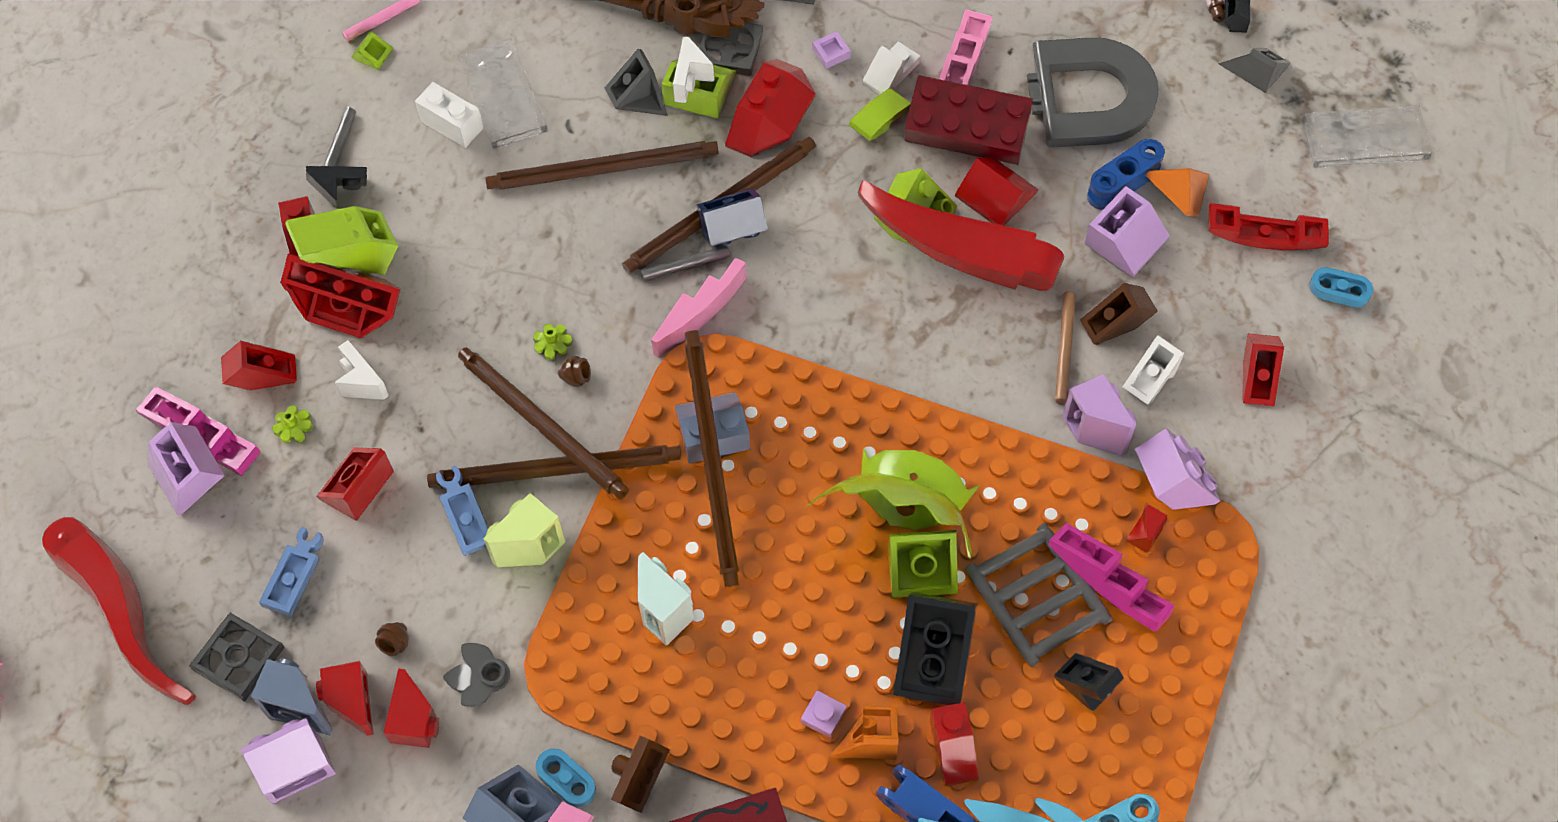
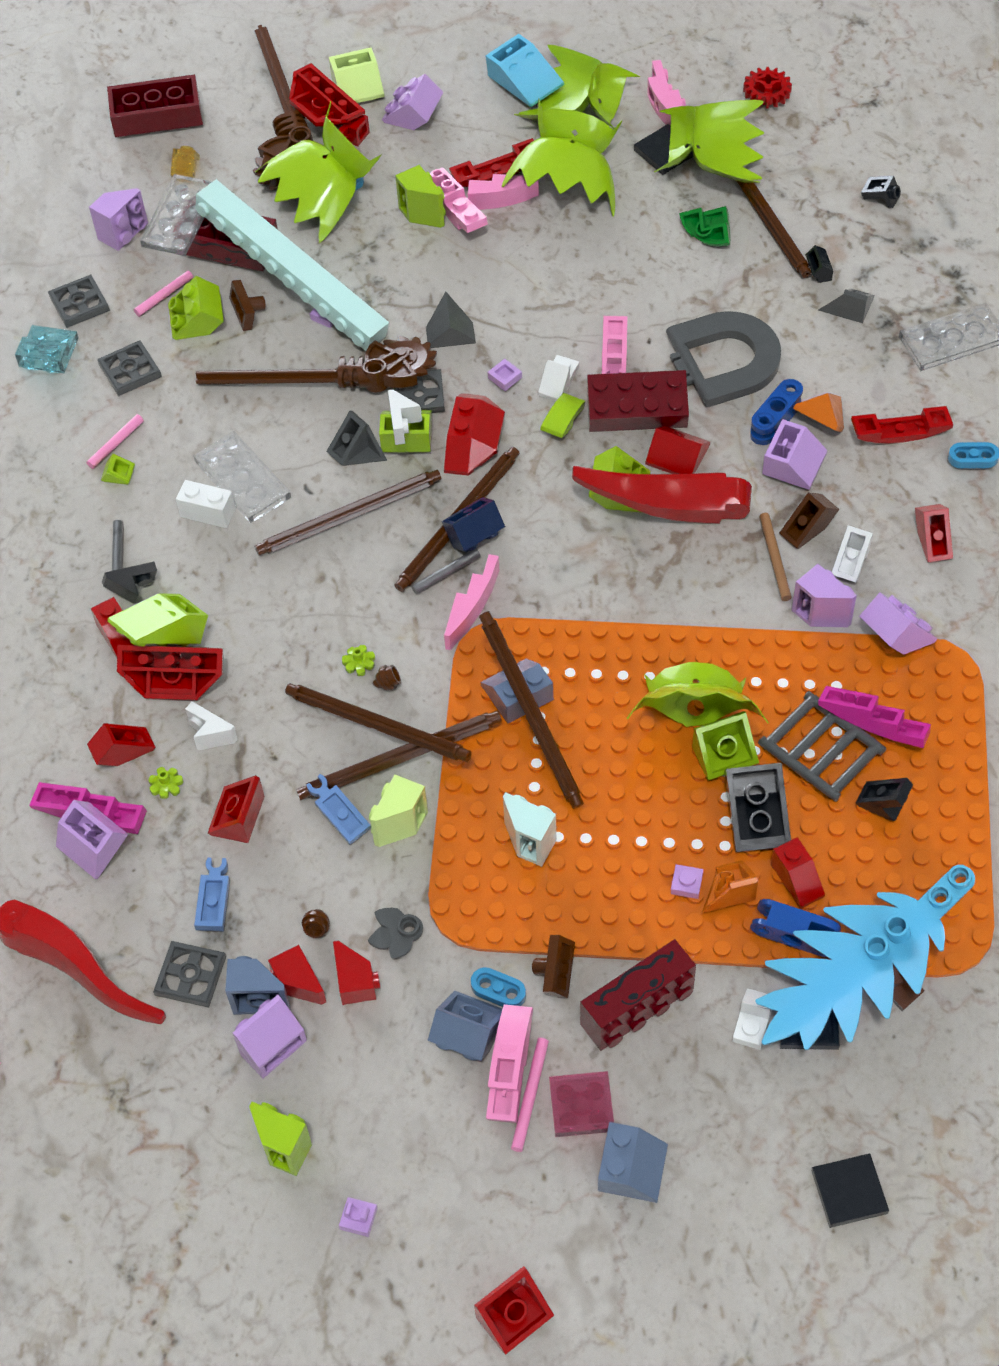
camera: 15 degrees left, 5 degrees down
(1147, 528) = (889, 673): red slope -> none

